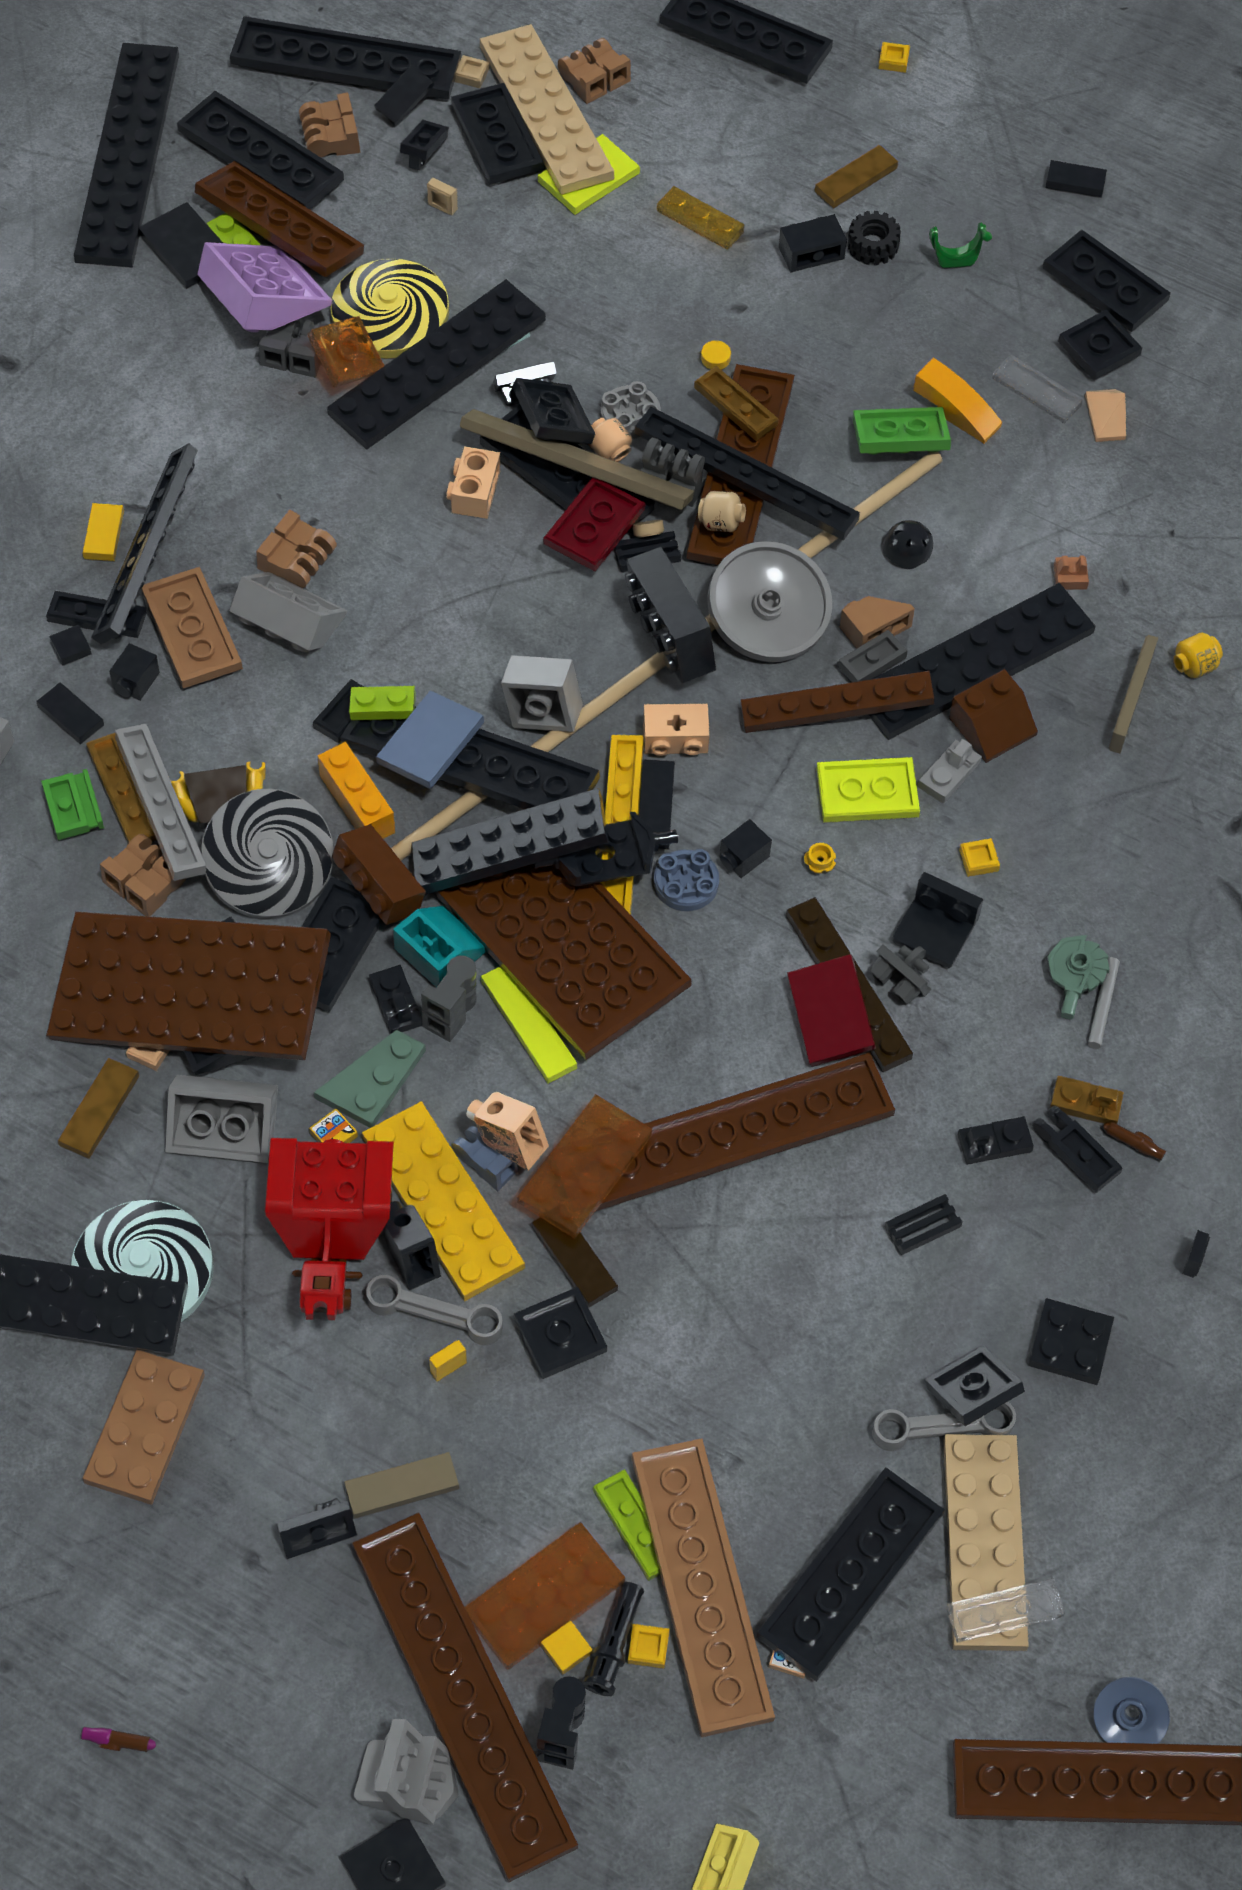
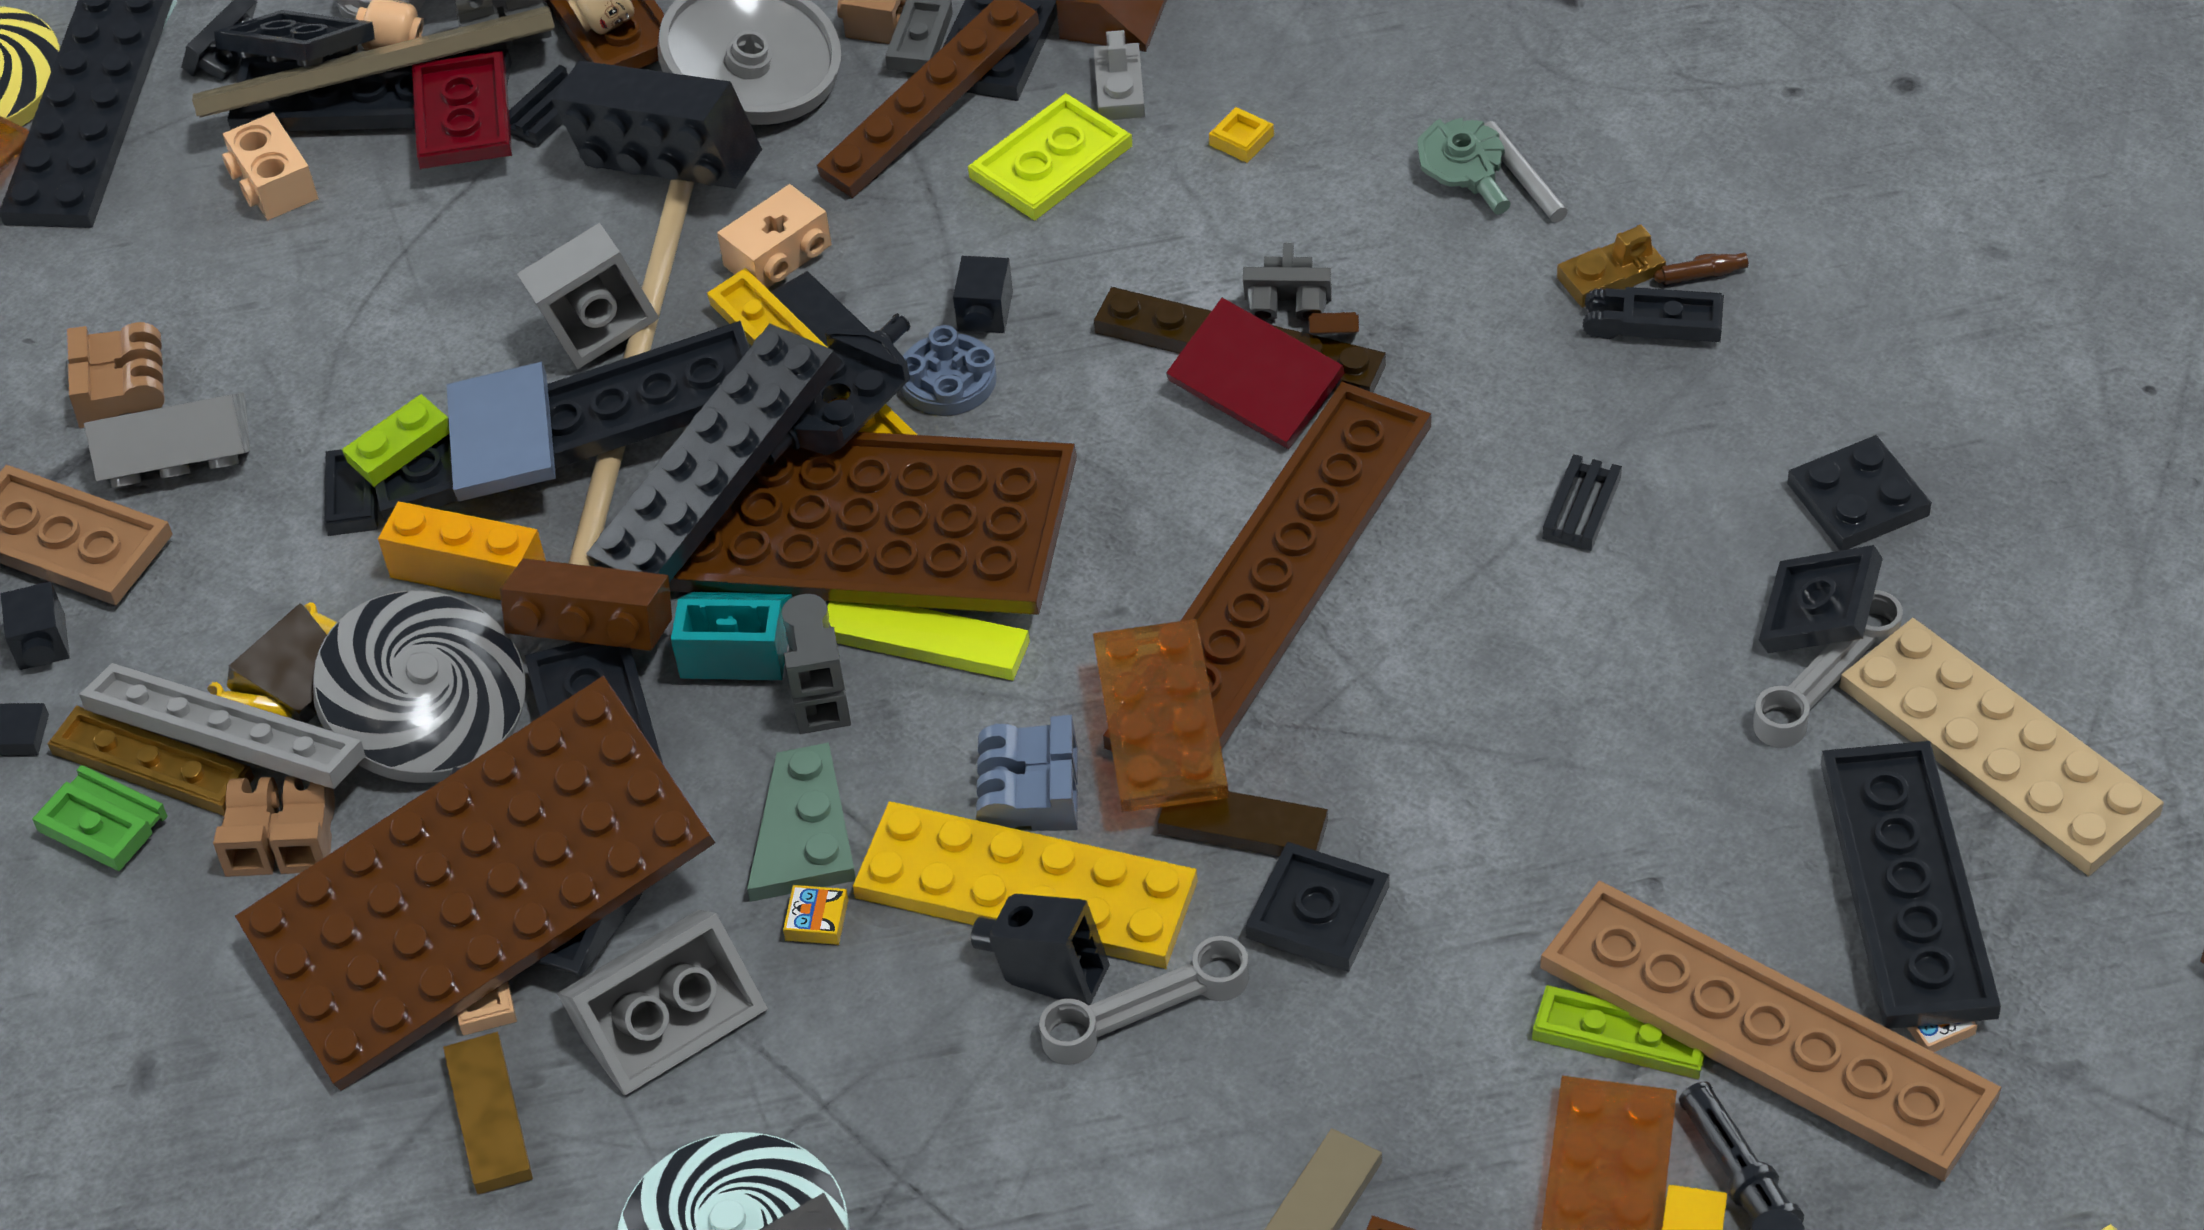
camera: 35 degrees left, 10 degrees down
(330, 1208) = (923, 977): red piece -> none
(395, 999) = (739, 727): black hinge -> none
(447, 1360) = (1222, 1034): yellow tile -> none
(510, 1128) = (1041, 725): light nougat torso -> none
(648, 528) = (528, 79): tan tile -> none
(648, 1646) = (1781, 1139): yellow tile -> none
(823, 851) = (1074, 248): yellow plate -> none
(902, 1014) = (1333, 323): none -> reddish brown tile
(939, 919) = (1267, 205): black bracket -> none
(995, 1140) = (1563, 371): black hinge -> none
(1005, 1610) = (2107, 780): clear tile -> none
(1196, 1254) = (1887, 316): black tile -> none

